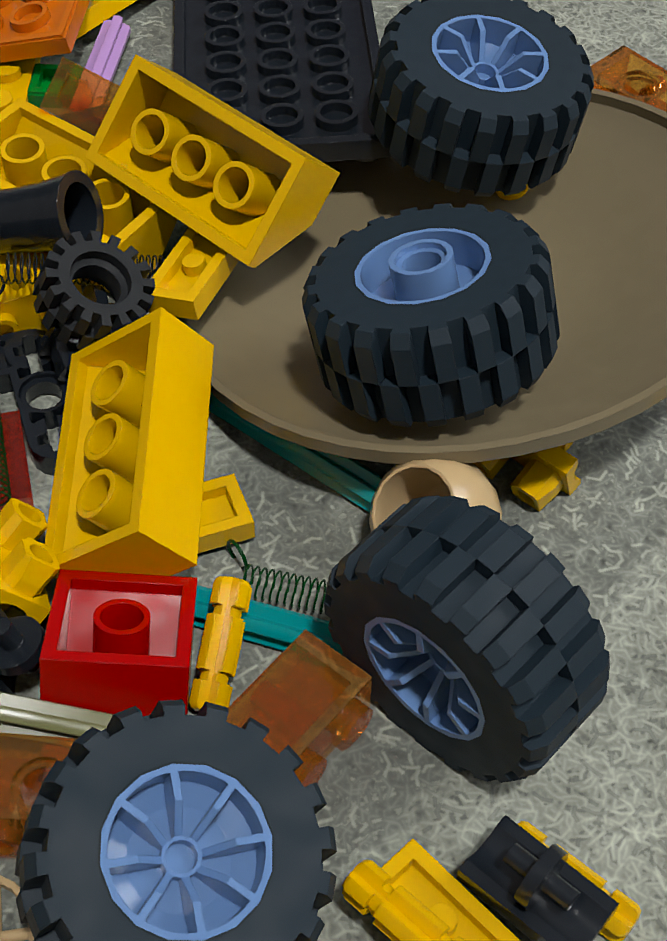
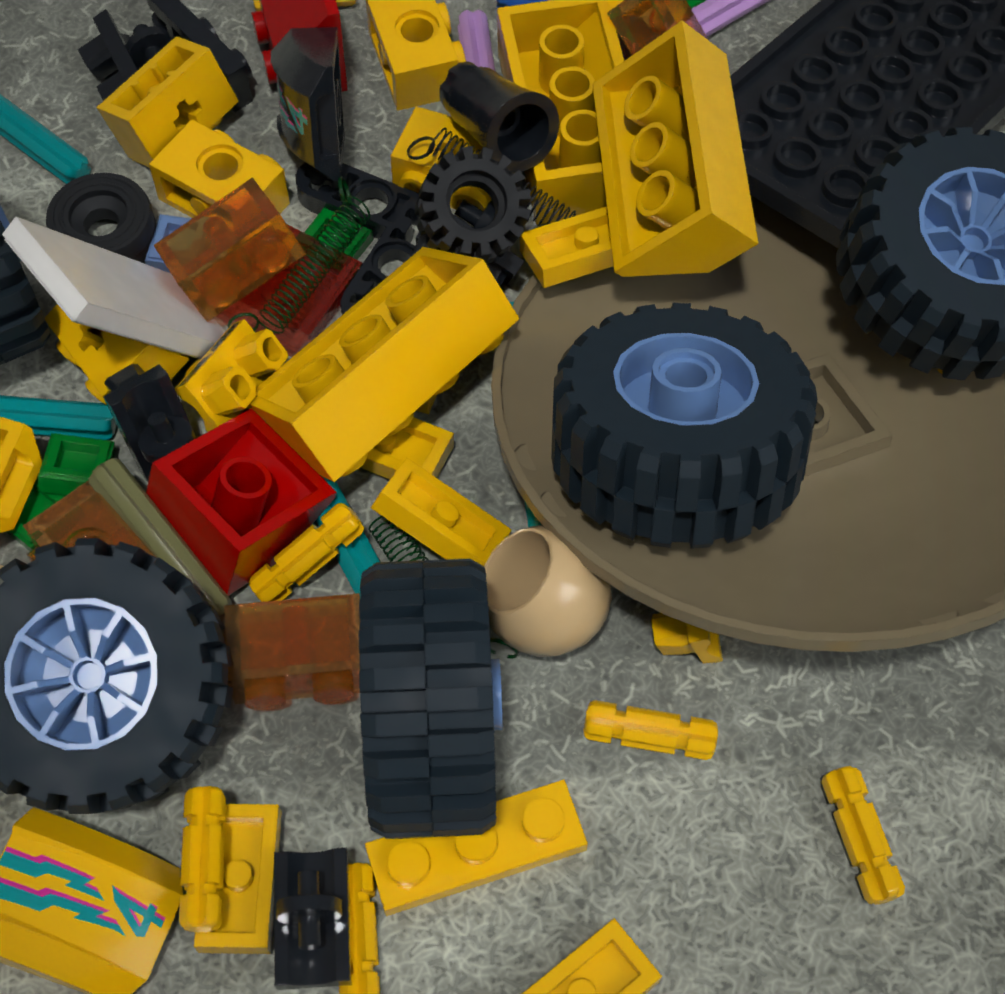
camera: 45 degrees right, 10 degrees up
(292, 536) = (438, 515): none -> yellow plate
(563, 787) = (527, 834): none -> yellow plate
(604, 553) = (651, 729): none -> yellow axle

